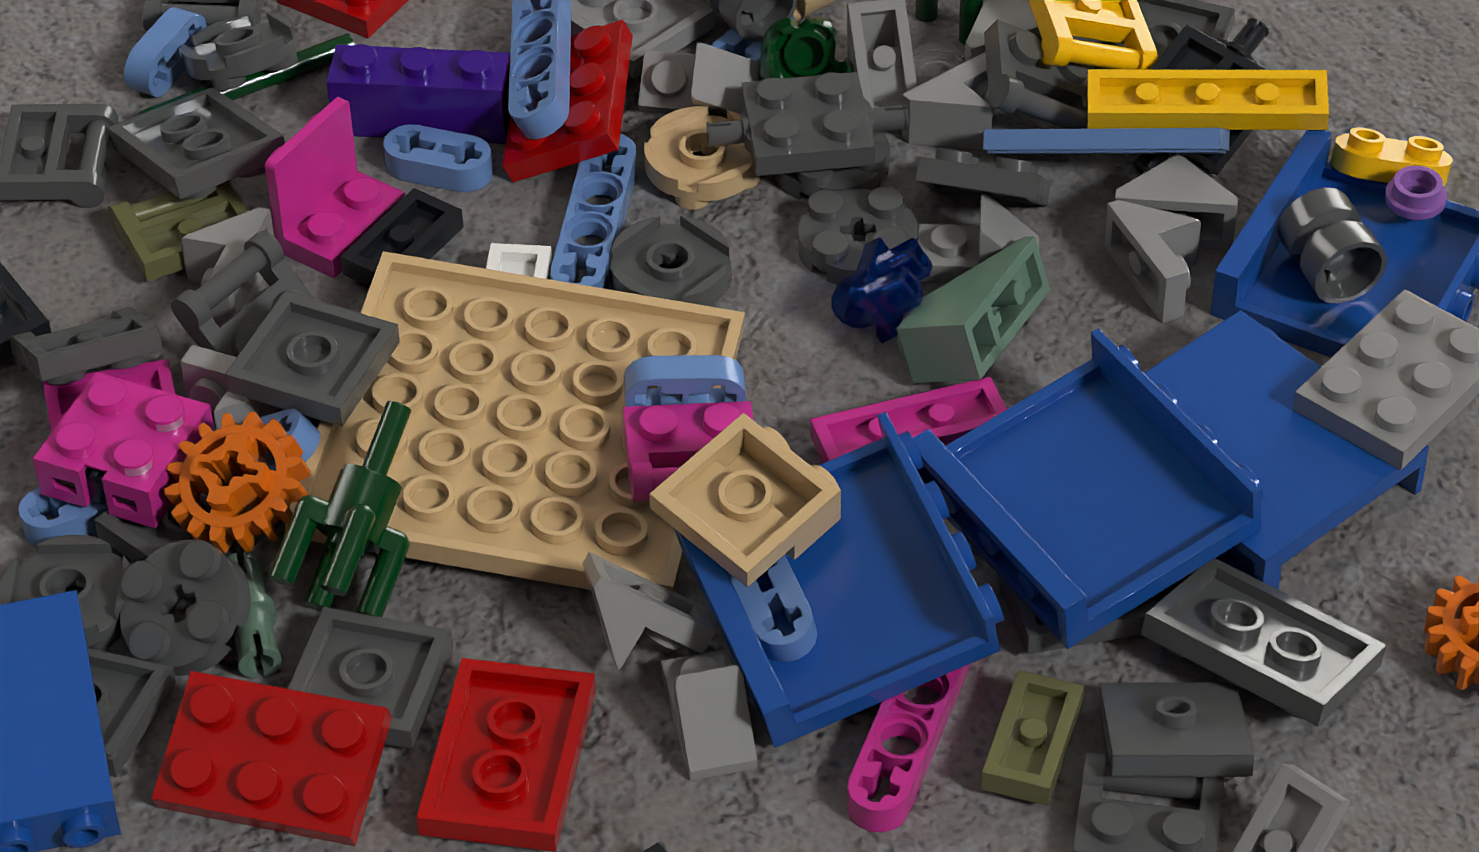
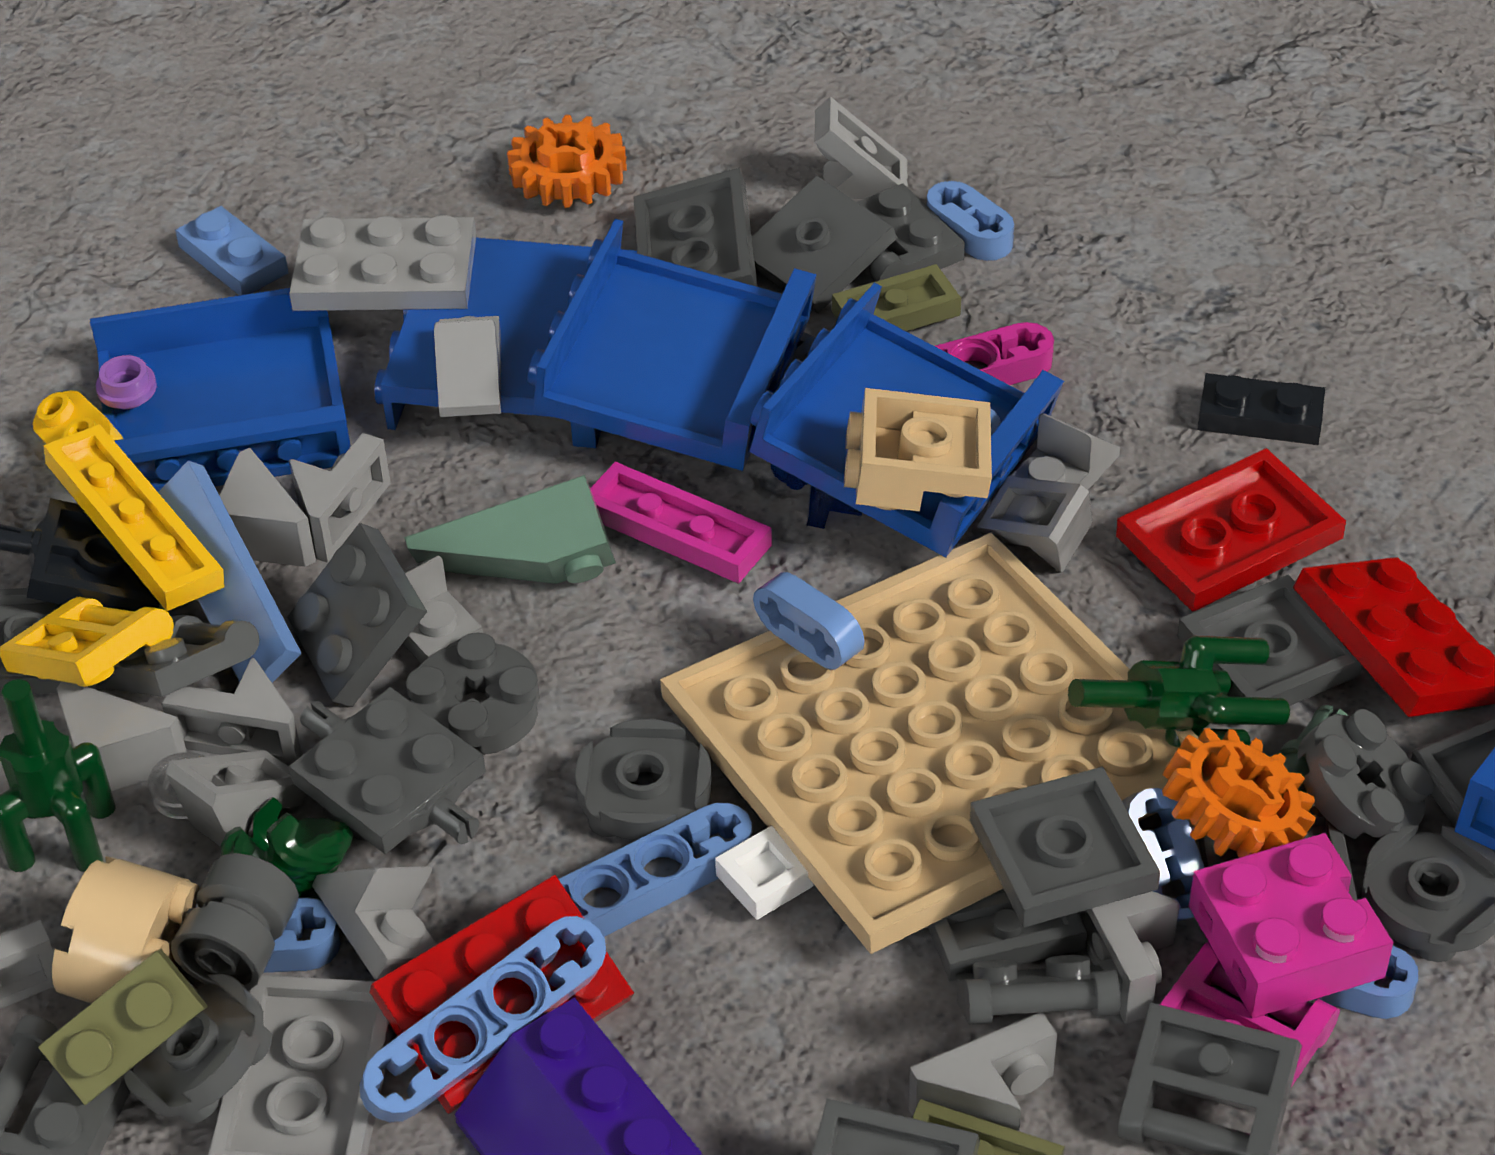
camera: 130 degrees left, 0 degrees up
(320, 195) = (839, 1060): dark pink bracket -> none
(413, 227) = (811, 987): black plate -> none
(438, 158) = (680, 1057): medium blue beam -> none
(667, 436) = (877, 611): dark pink plate -> none
(690, 177) = (474, 890): tan plate -> none
(882, 287) = (571, 583): clear blue hips -> none
(1194, 355) = (468, 365): none -> light grey slope
(1332, 245) = (245, 383): dark grey wheel -> none

